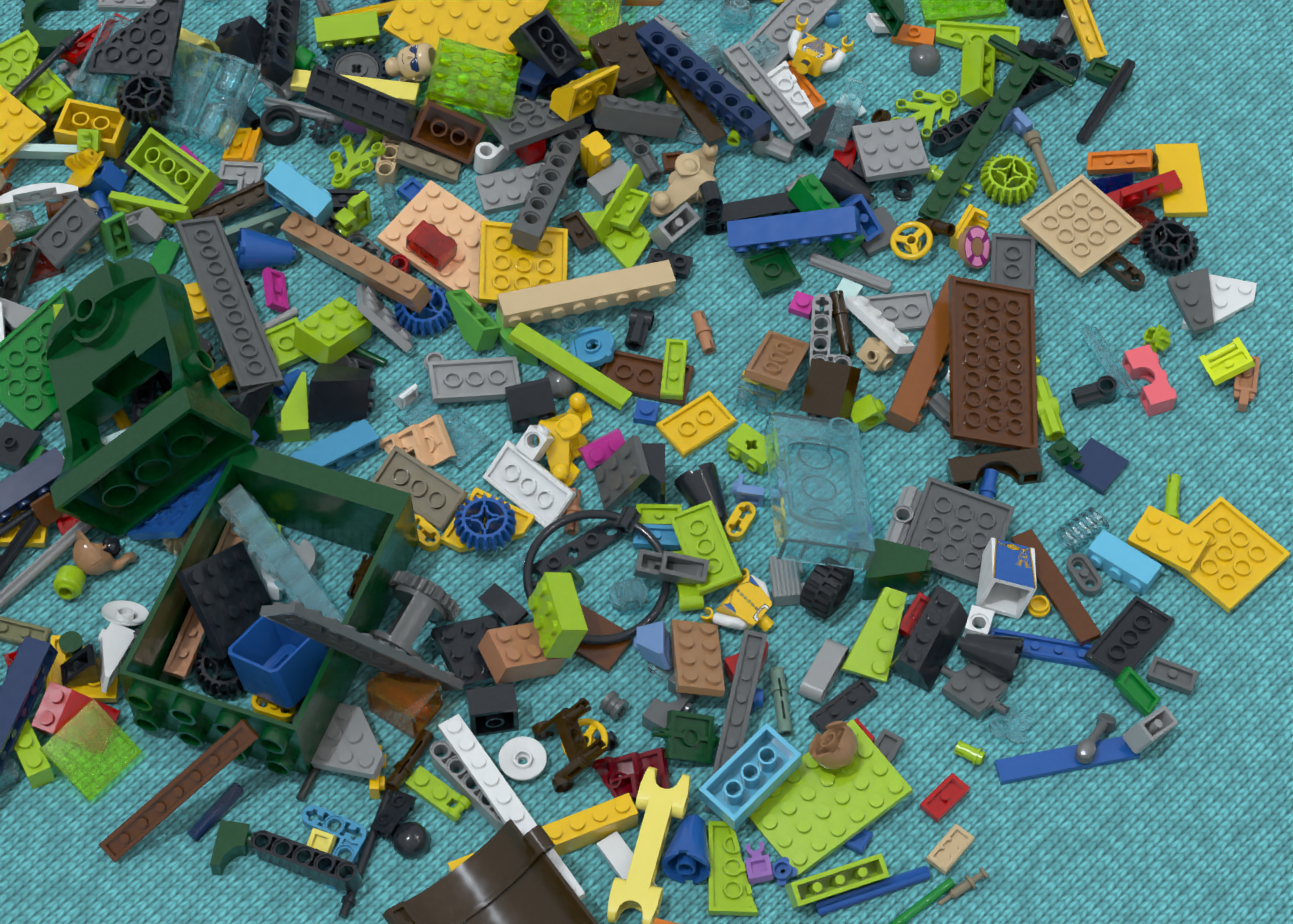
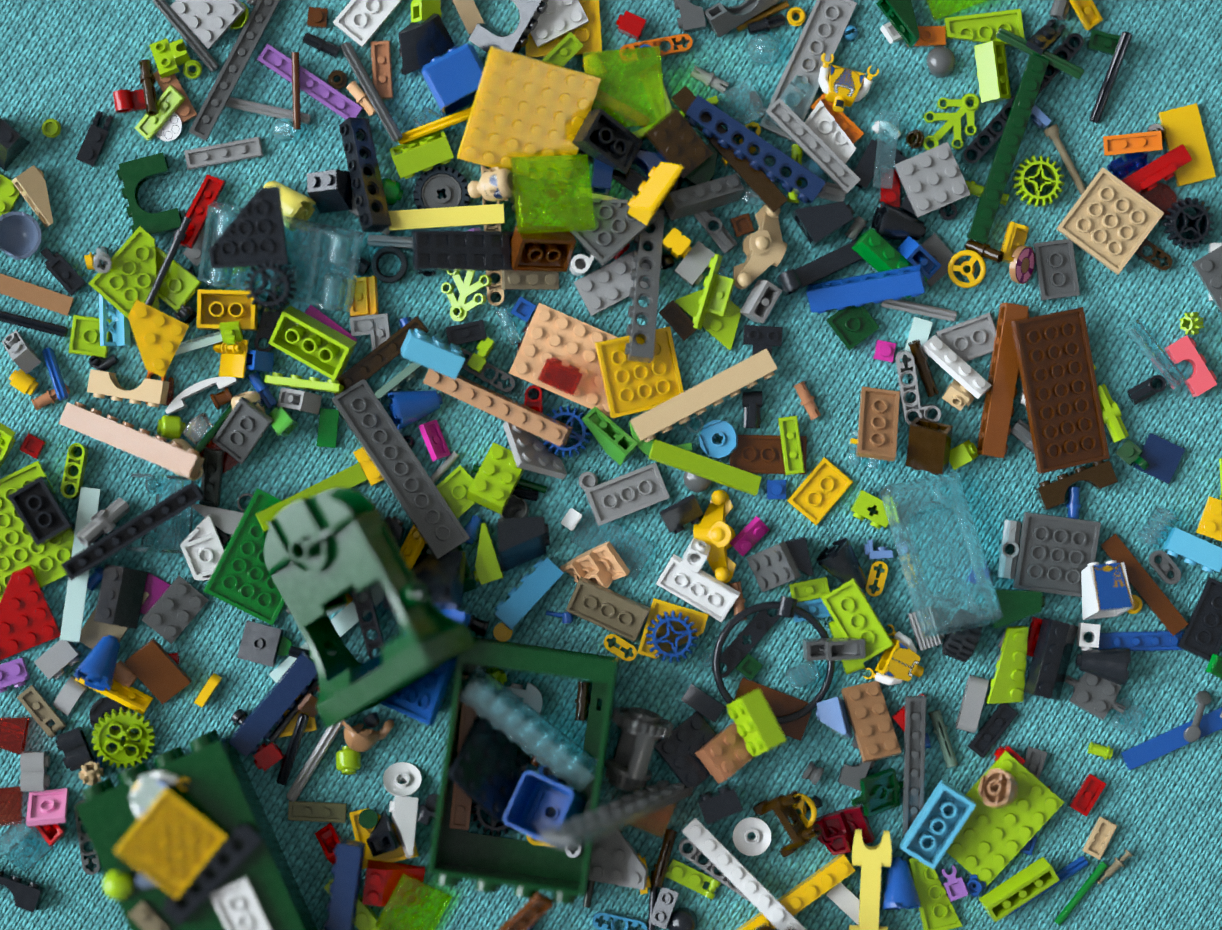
camera: 15 degrees left, 30 degrees up
(762, 165) = (822, 220): none -> black slope

